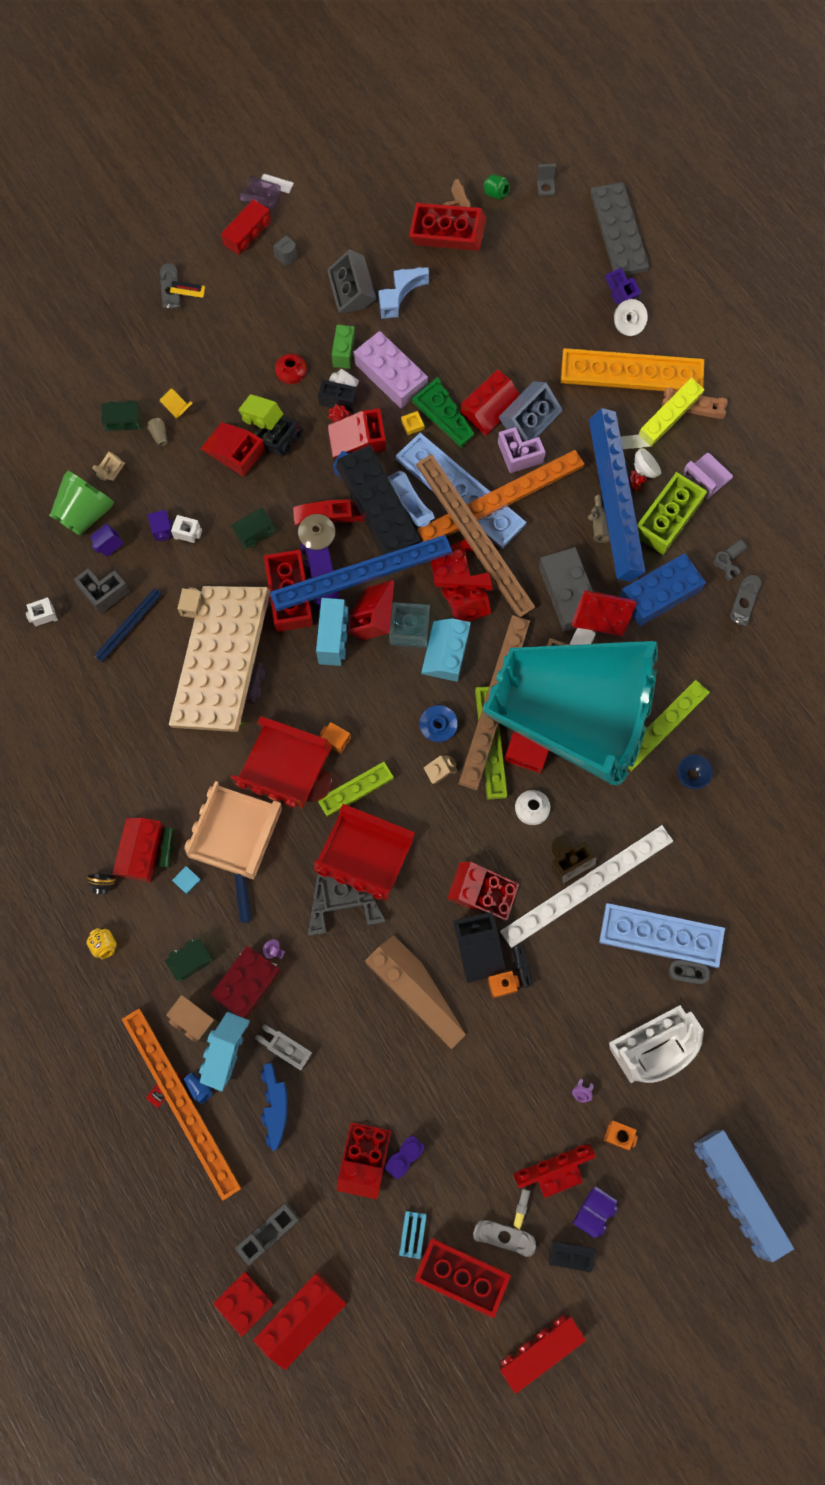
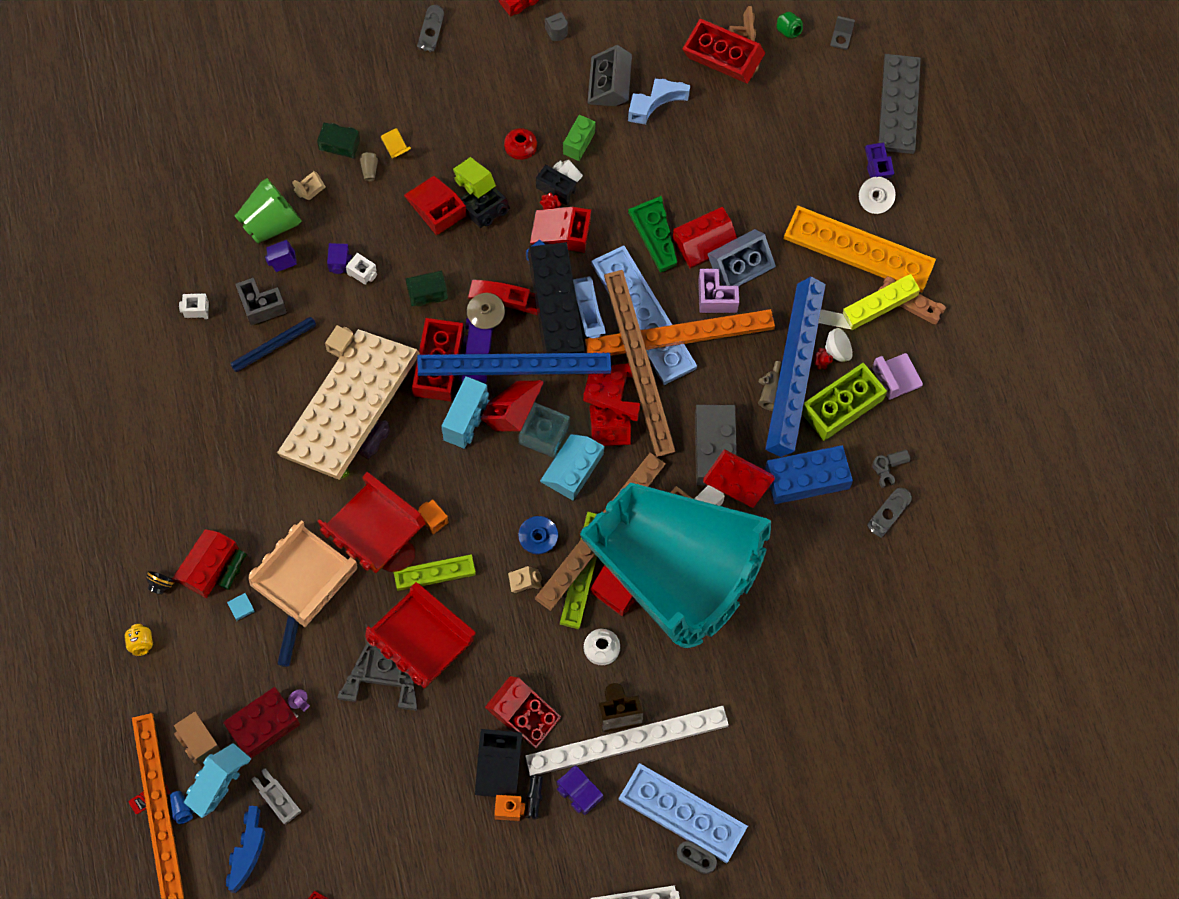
camera: 15 degrees right, 5 degrees down
(187, 289) = (447, 35): sticker -> none
(189, 959) = (215, 683): clear green brick -> none
(390, 369) = (617, 174): lavender brick -> none
(412, 423) = (620, 233): yellow plate -> none
(415, 987) = (423, 783): medium nougat wedge -> none
(561, 946) = (579, 790): none -> dark purple brick
(670, 719) = (767, 607): lime plate -> none
(700, 765) = (774, 654): dark blue piece -> none

